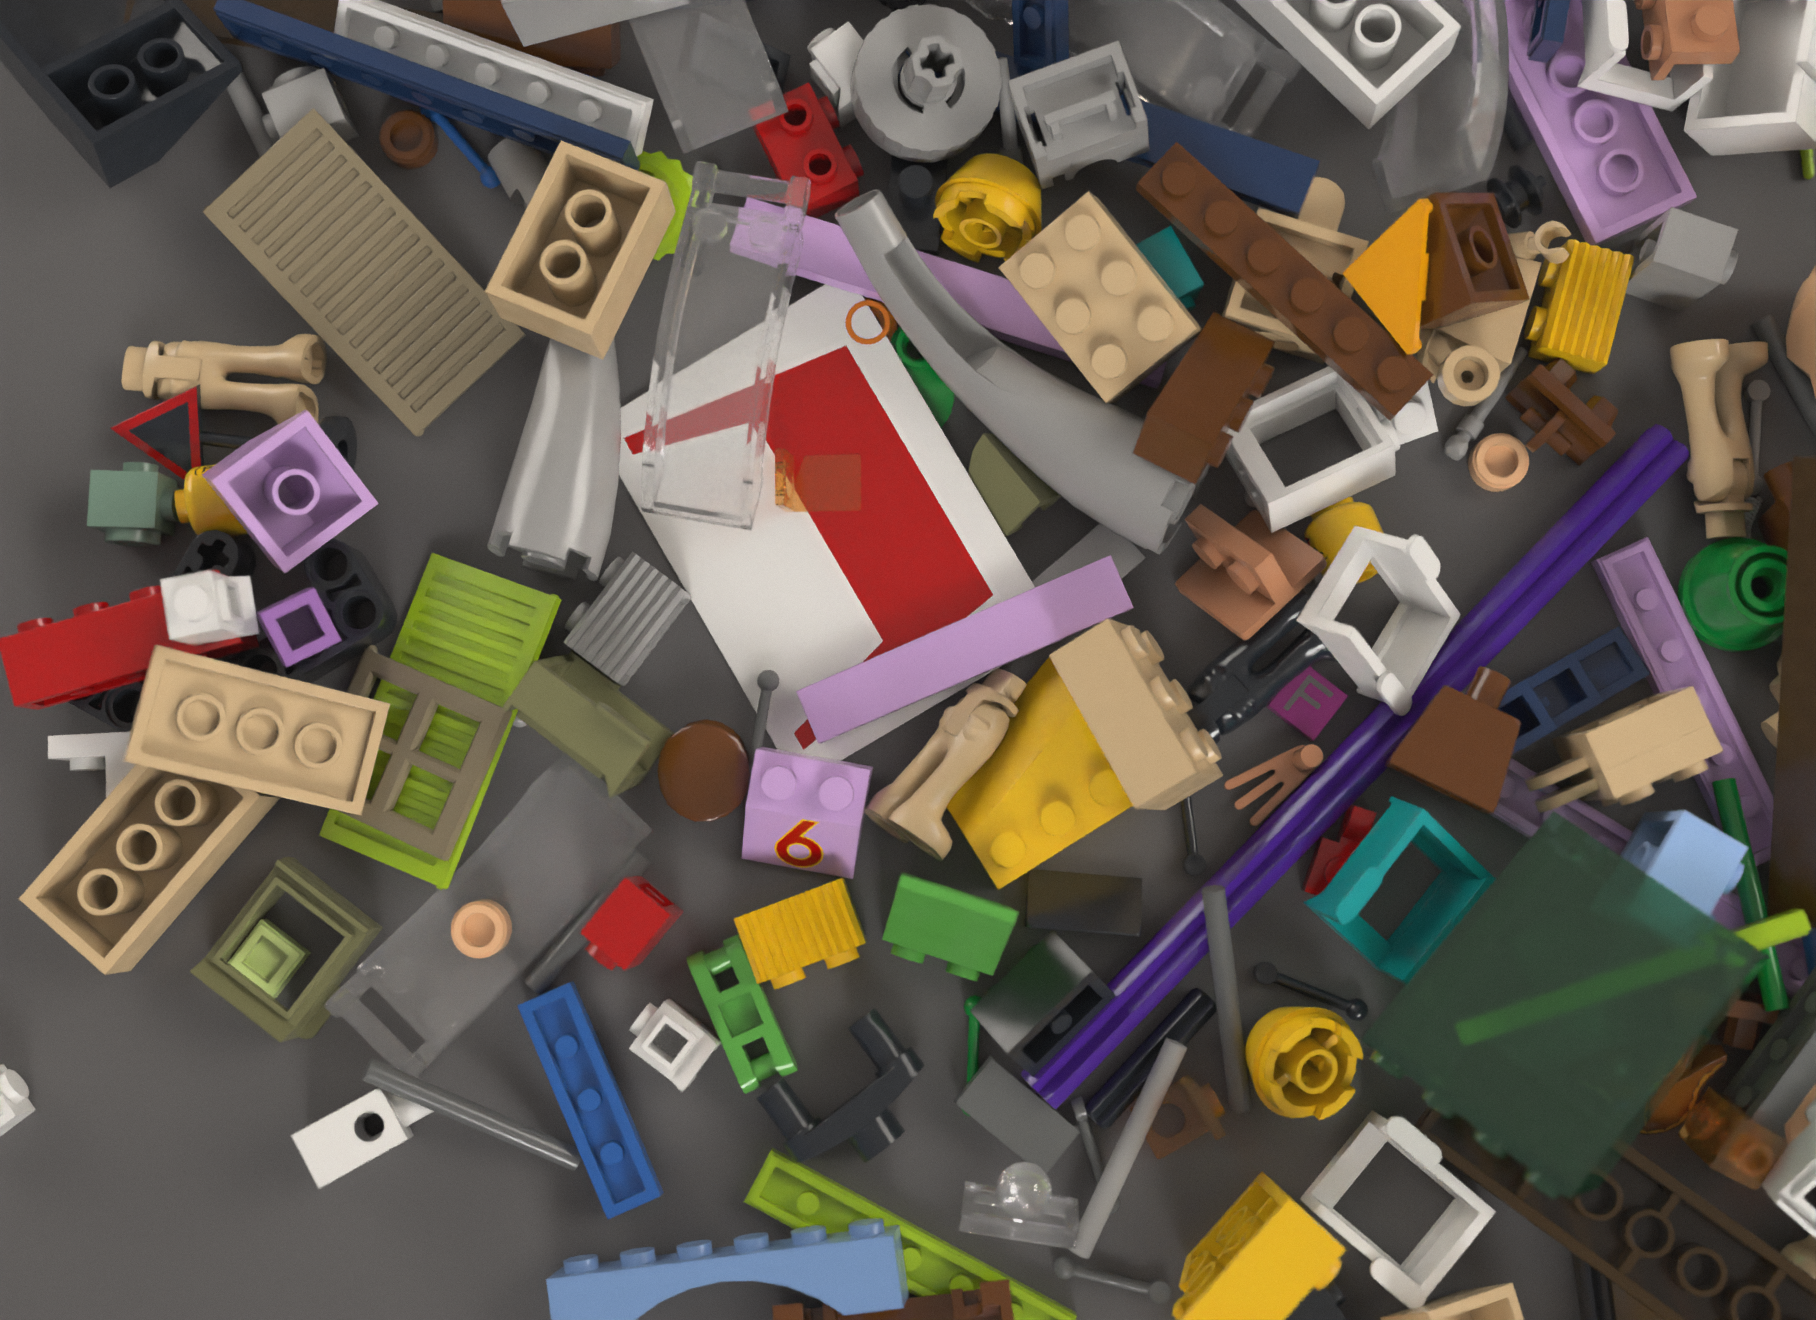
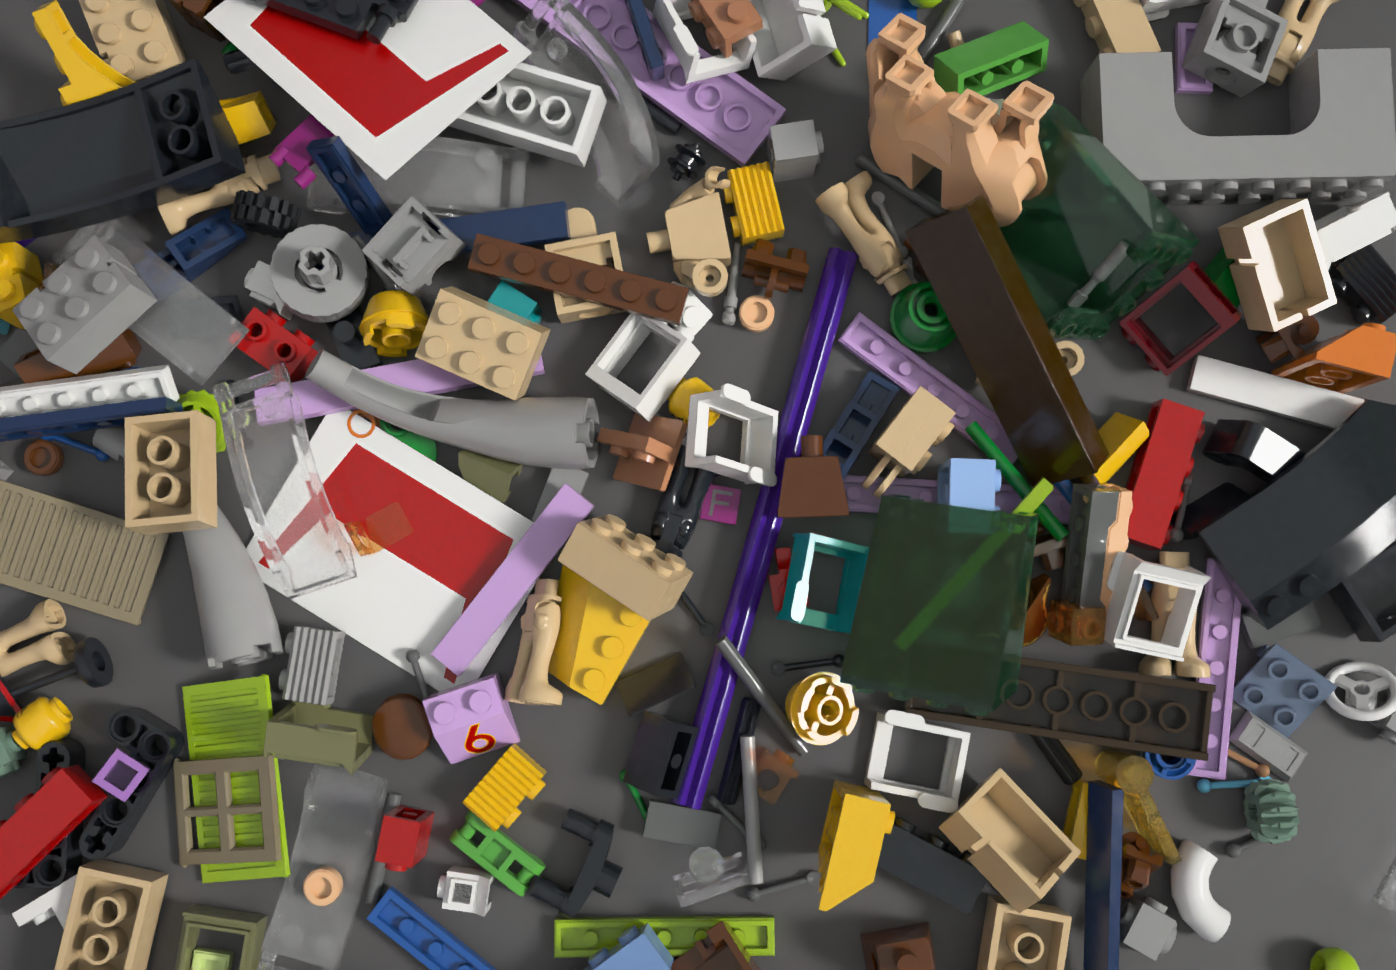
camera: 35 degrees left, 0 degrees up
(209, 607) = (60, 793): white window -> none
(256, 731) = (128, 847): tan plate -> none
(290, 490) = (76, 698): lavender slope -> none
(949, 926) = (582, 739): bright green slope -> none
(1206, 399) = (569, 369): reddish brown brick -> none
(1289, 768) = (731, 547): nougat piece -> none
(1394, 275) = (637, 245): light orange tile -> none
(1469, 260) = (670, 216): reddish brown slope -> none

